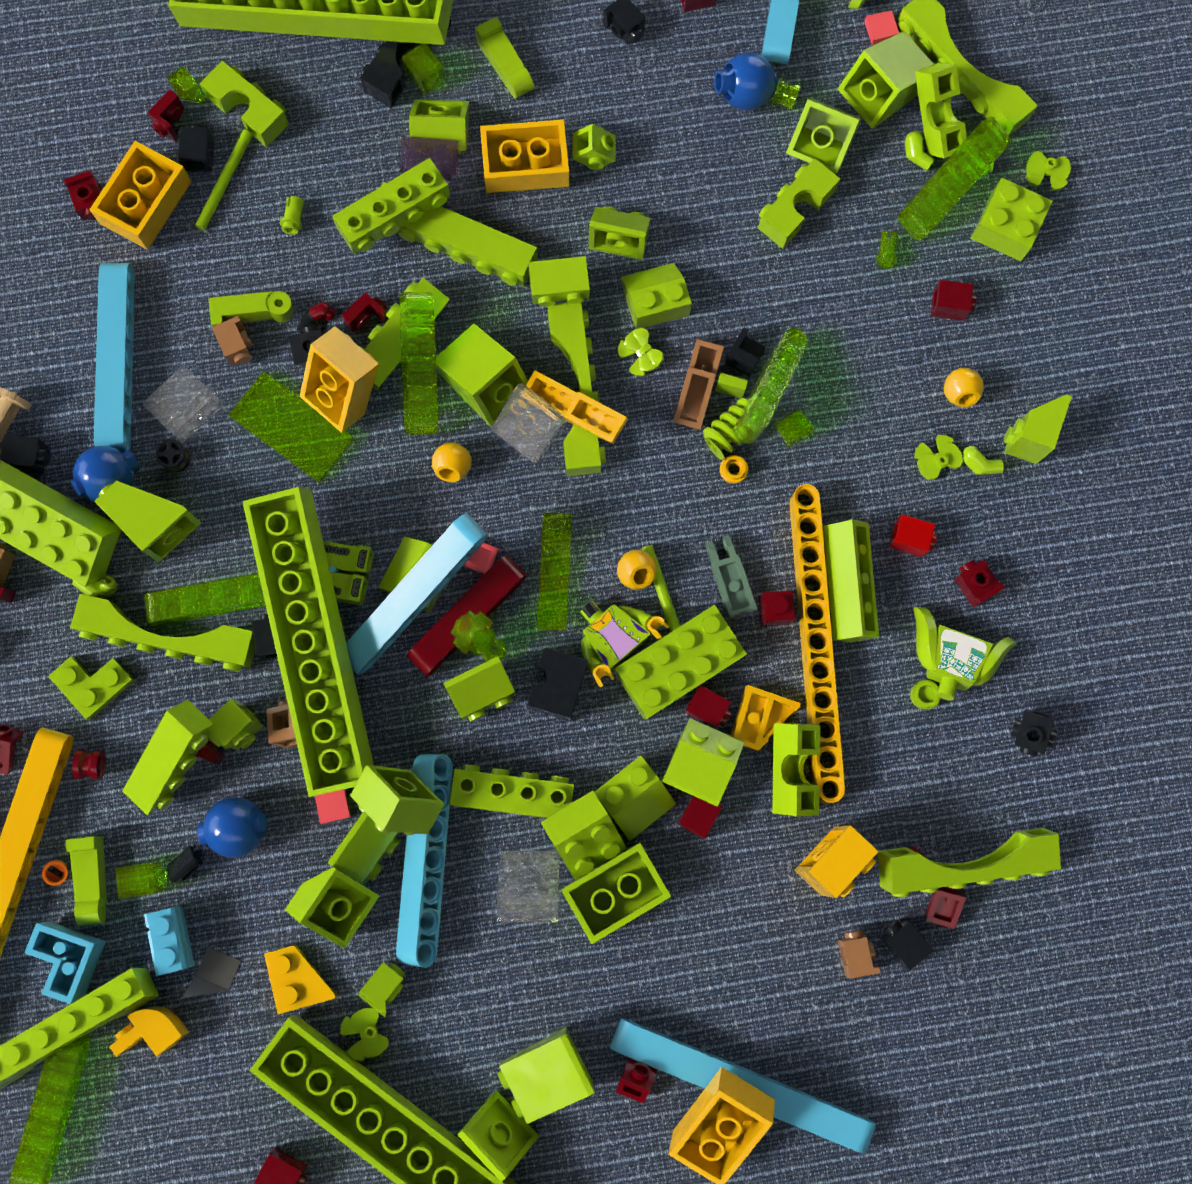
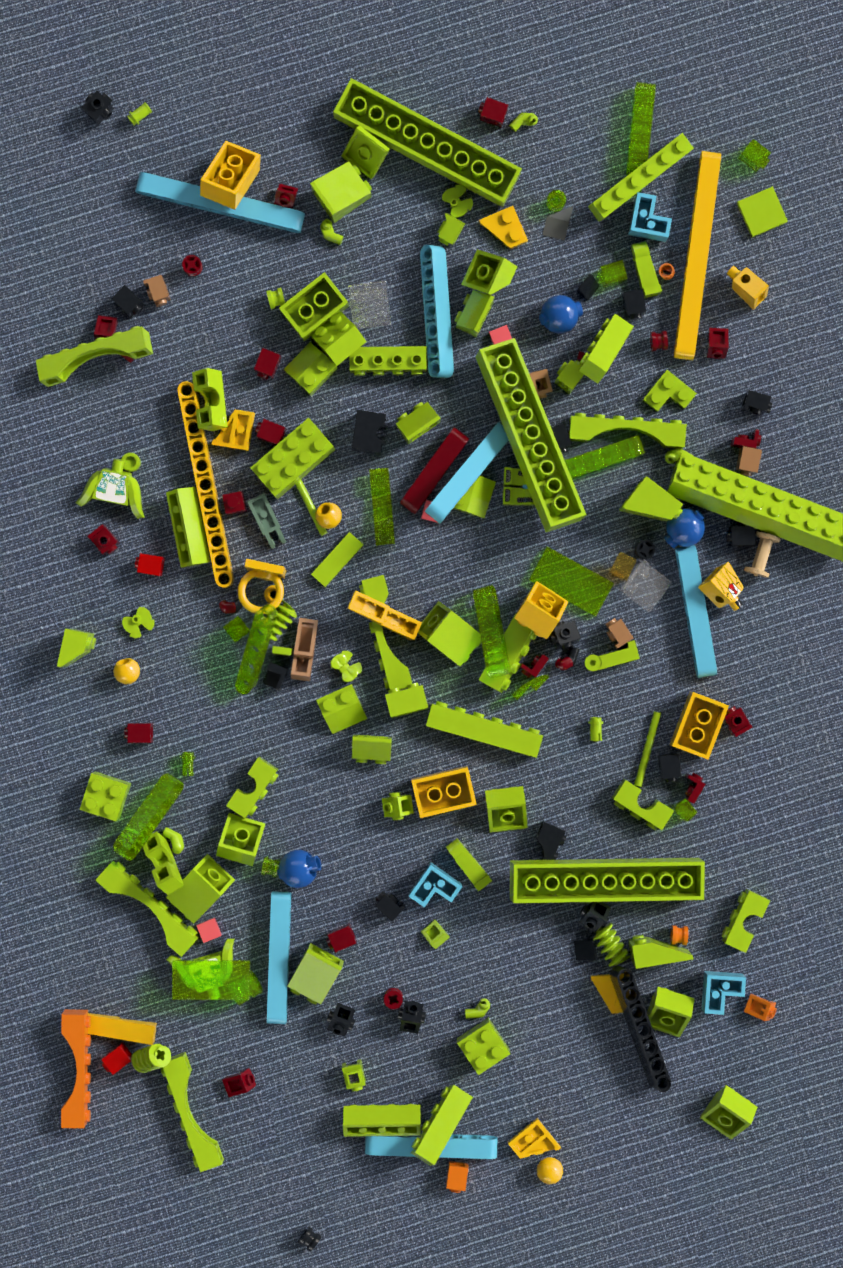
camera: 175 degrees right, 10 degrees up
(65, 382) = (723, 587): none -> yellow torso
(116, 827) = (634, 304): none -> black brick
(155, 1025) = (586, 188): yellow brick -> none
(169, 940) = (587, 239): medium azure brick -> none
(209, 432) = (622, 566): none -> clear yellow panel
(213, 1008) = (556, 205): none -> clear neon green wheel
(235, 1155) = (526, 119): none -> lime arm
(384, 286) = (535, 683): none -> clear neon green slope
(392, 206) = (526, 737): lime brick -> none
(396, 800) = (458, 341): lime brick -> none
(424, 69) = (523, 847): clear neon green brick -> none
(441, 151) = (508, 780): bracket -> none
(451, 462) = (460, 570): yellow piece -> none
(475, 634) = (425, 454): clear neon green connector -> none
(528, 423) = (413, 603): clear plate -> none
(558, 39) = (434, 881): none -> medium azure brick
(576, 1011) = (328, 232): none -> lime arm
(614, 636) = (337, 469): torso -> none
(632, 507) = (337, 559): none -> lime tile
(673, 916) = (275, 298): none -> lime wheel
(703, 762) = (269, 395): lime slope -> none
(743, 497) = (265, 572): none -> yellow tile
(795, 458) = (230, 607): none -> dark red arm
(802, 992) = (189, 263): none -> dark red wheel
(837, 862) = (178, 342): yellow brick -> none
(979, 464) = (111, 621): lime arm -> none
(1034, 721) = (59, 445): black brick -> none
(1057, 169) = (88, 841): lime piece -> none

